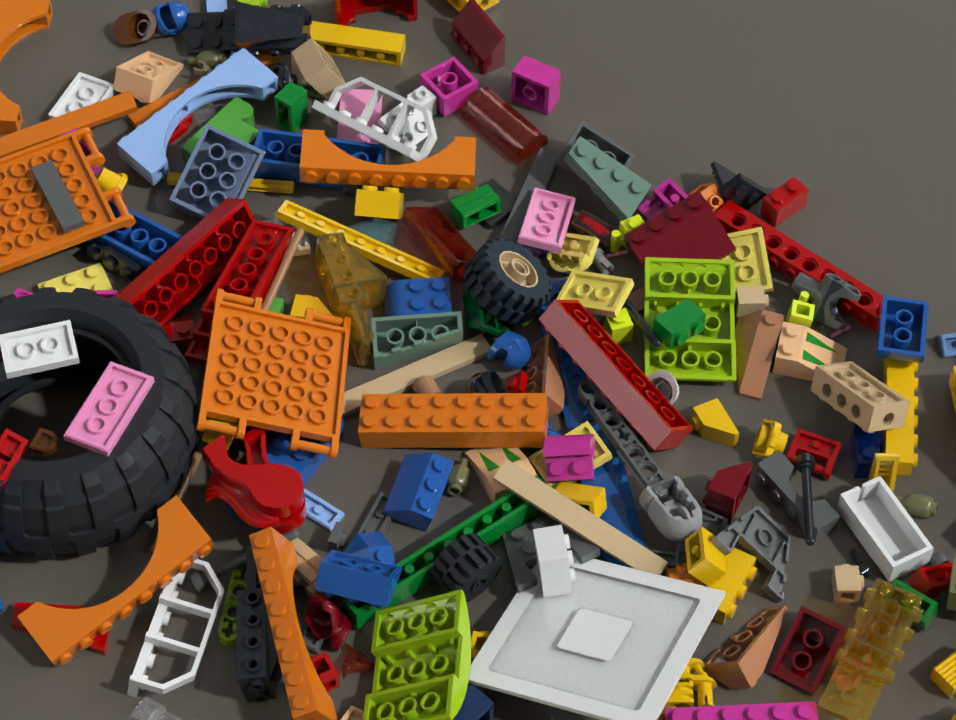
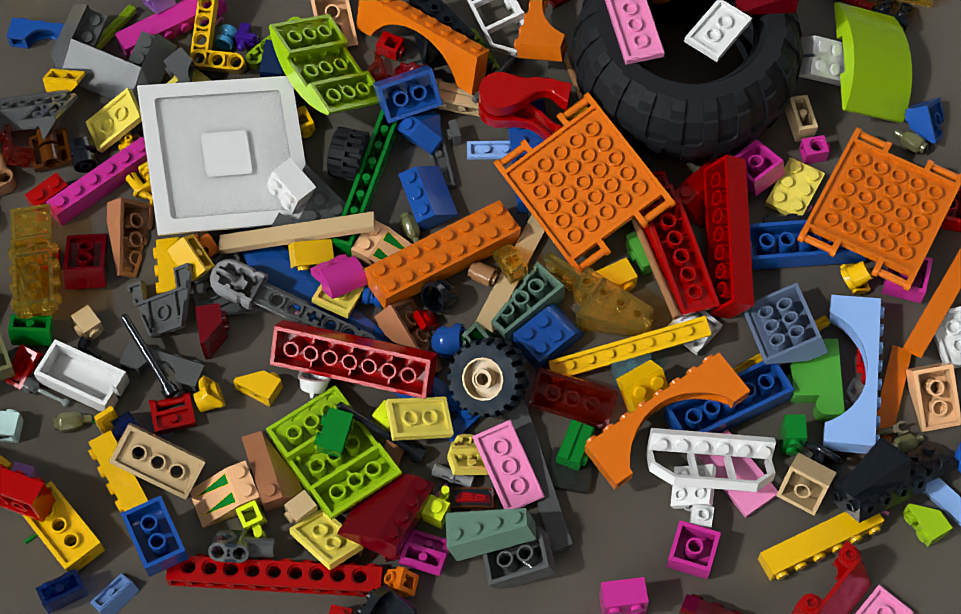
camera: 145 degrees right, 10 degrees up
(58, 196) = (866, 213): dark grey tile -> none
(398, 371) = (511, 262): none -> clear yellow slope
(502, 125) = (621, 552): clear red brick -> none

